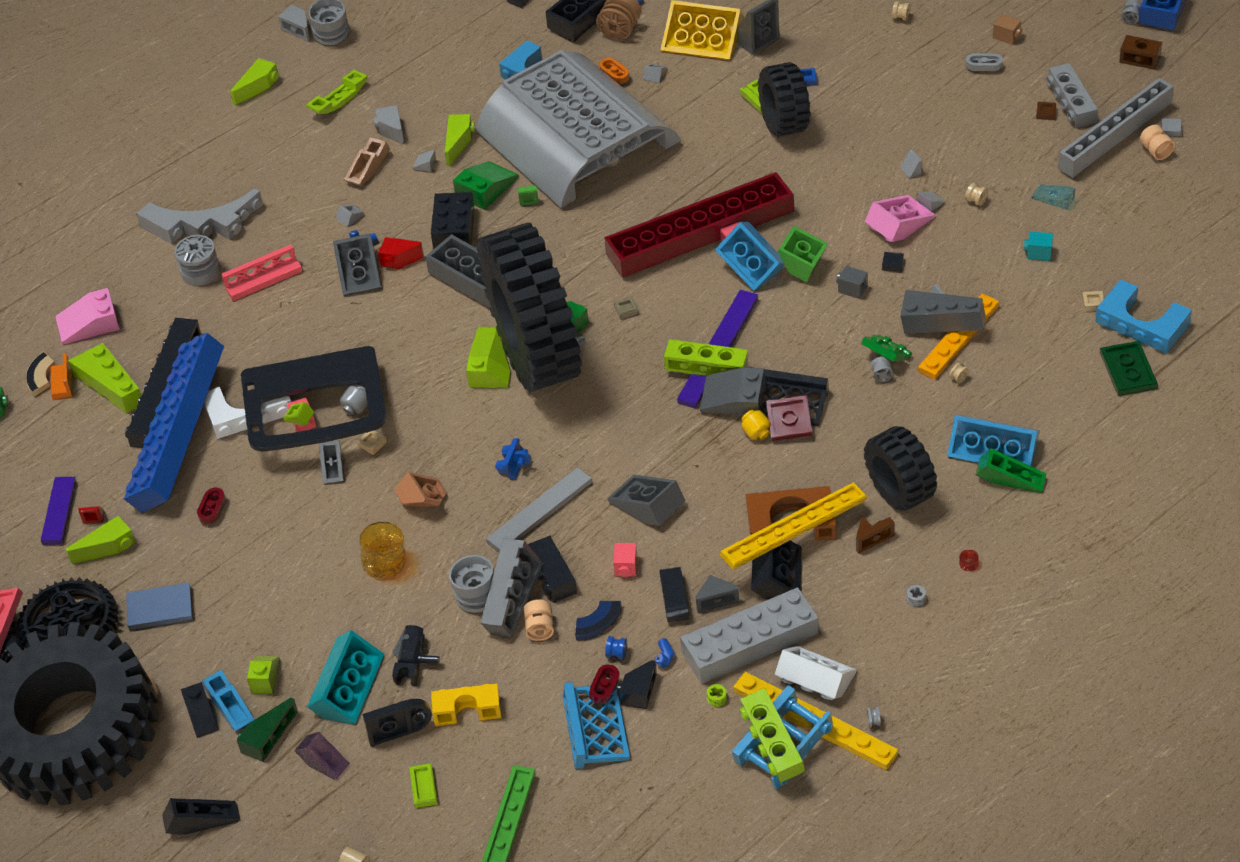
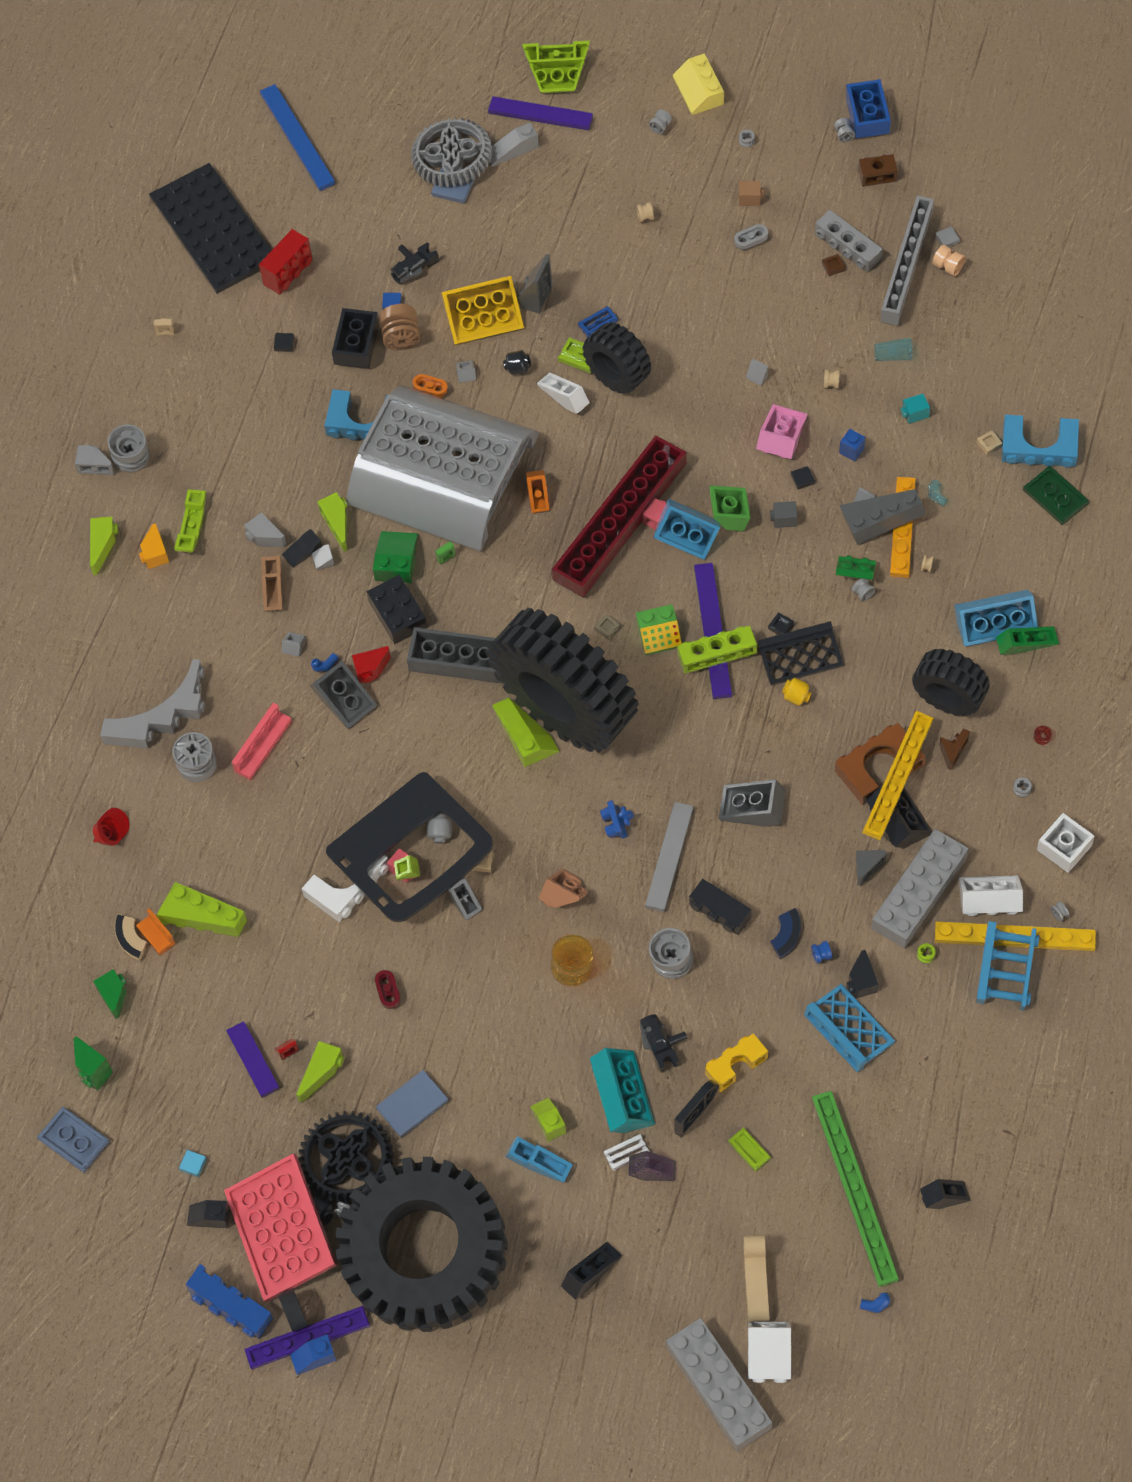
camera: 30 degrees left, 15 degrees up
(87, 317) = (132, 861): bright pink slope -> none
(90, 281) = (111, 827): none -> red piece
(173, 423) = (302, 928): blue brick -> none
(179, 332) = (254, 891): black brick -> none
(199, 709) = (520, 1179): black slope -> none
(265, 731) = (589, 1171): dark green slope -> none
(292, 100) = (152, 549): none -> light orange slope
(305, 729) = (621, 1146): none -> white tile
(412, 147) = (302, 548): none -> black slope
(510, 587) = (706, 944): dark grey wedge -> none
(538, 620) = (741, 956): light nougat wheel -> none
(602, 685) = (838, 990): dark red plate -> none
(625, 559) = (774, 869): coral brick -> none
(643, 180) = (537, 491): none -> orange slope
(667, 322) = (658, 629): none -> slope
(667, 653) = (863, 936): blue arm -> none
(674, 594) = (834, 880): black beam -> none
(701, 80) = (517, 362): none -> black head
(726, 117) = (565, 392): none -> white slope
(734, 391) = (759, 669): dark grey slope -> none
(758, 705) = (983, 948): lime brick -> none
(784, 365) = (780, 624): none -> black tile
(789, 418) = (820, 672): plate -> none
(920, 657) = (1065, 842): none -> white brick
(930, 200) = (794, 401): light grey slope -> none
(956, 251) = (852, 445): none -> blue brick
(1009, 321) = (934, 493): none -> clear light blue arm

